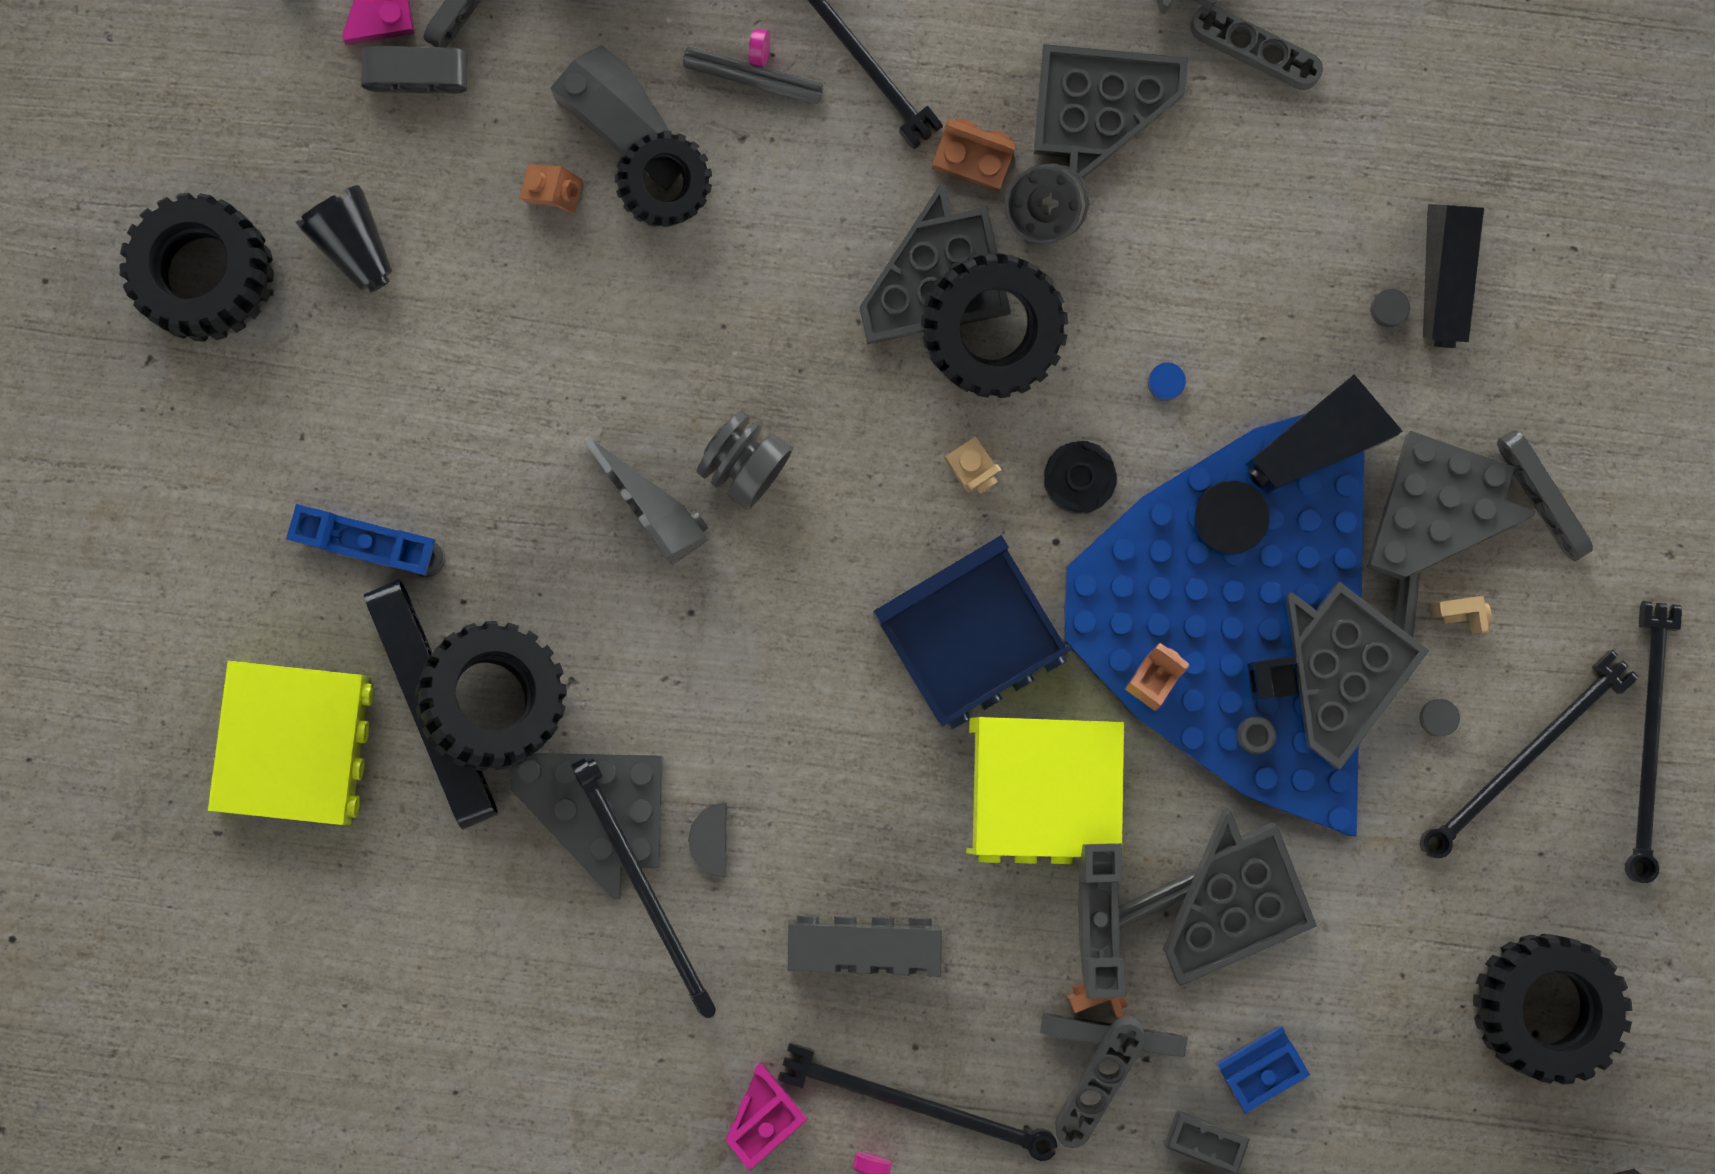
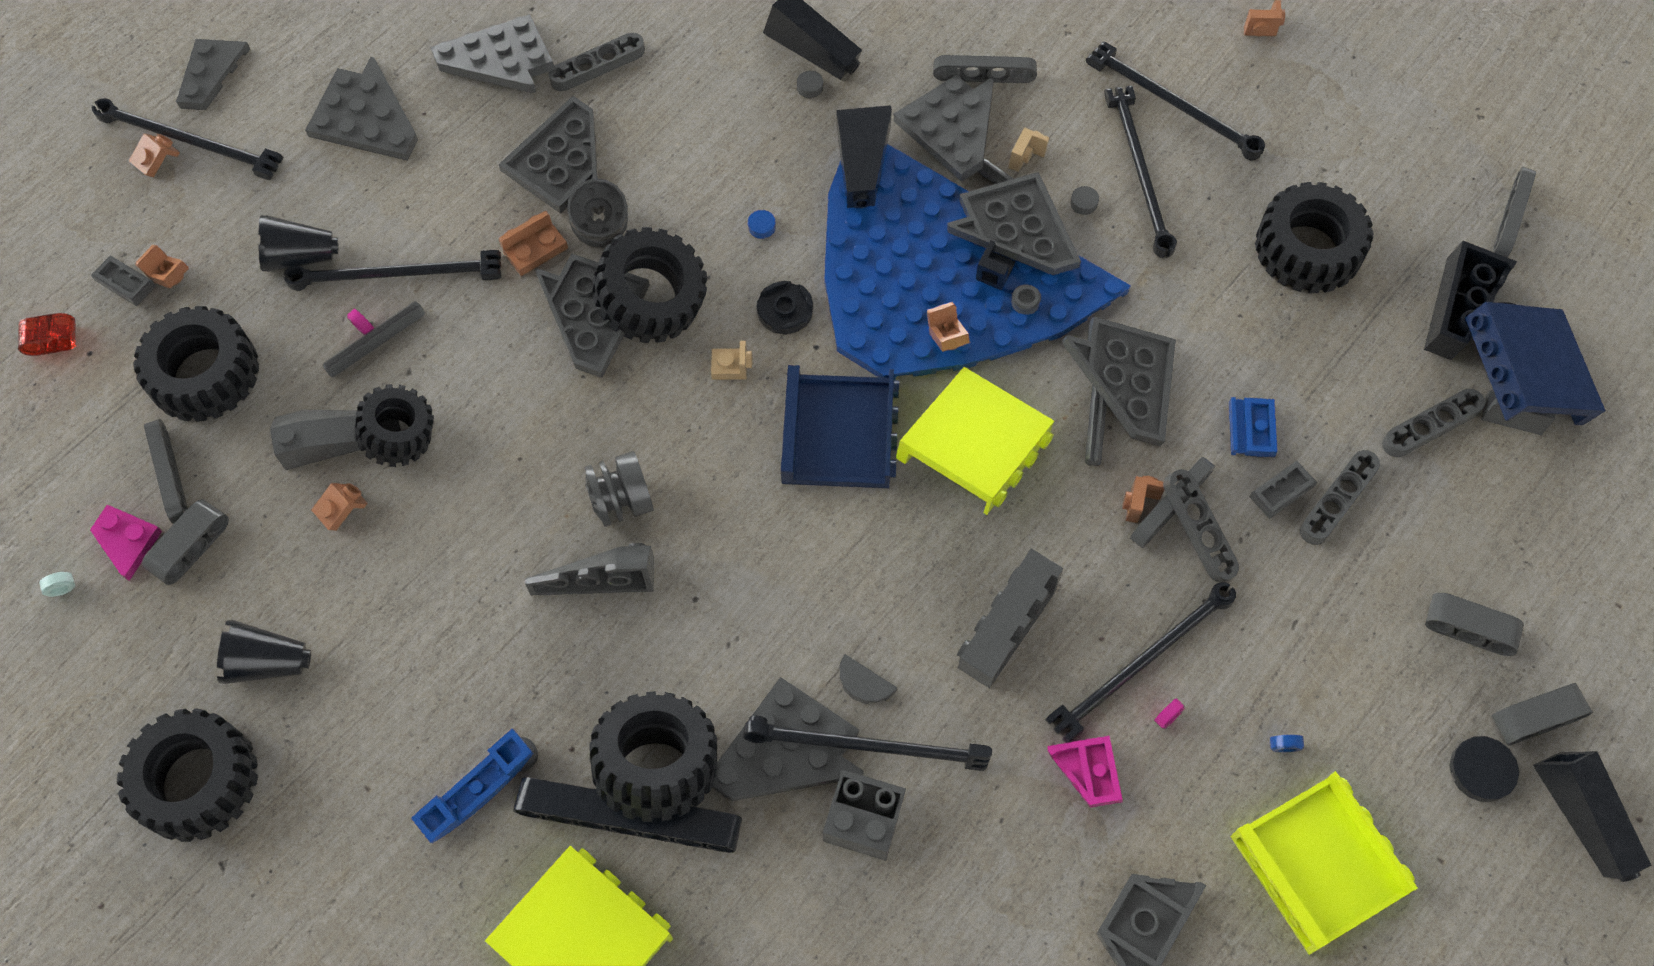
camera: 50 degrees left, 20 degrees down
(571, 931) = (863, 815): none -> dark grey slope
(1099, 920) = (1086, 458): dark grey slope -> none
(1231, 517) = (875, 232): black tile -> none

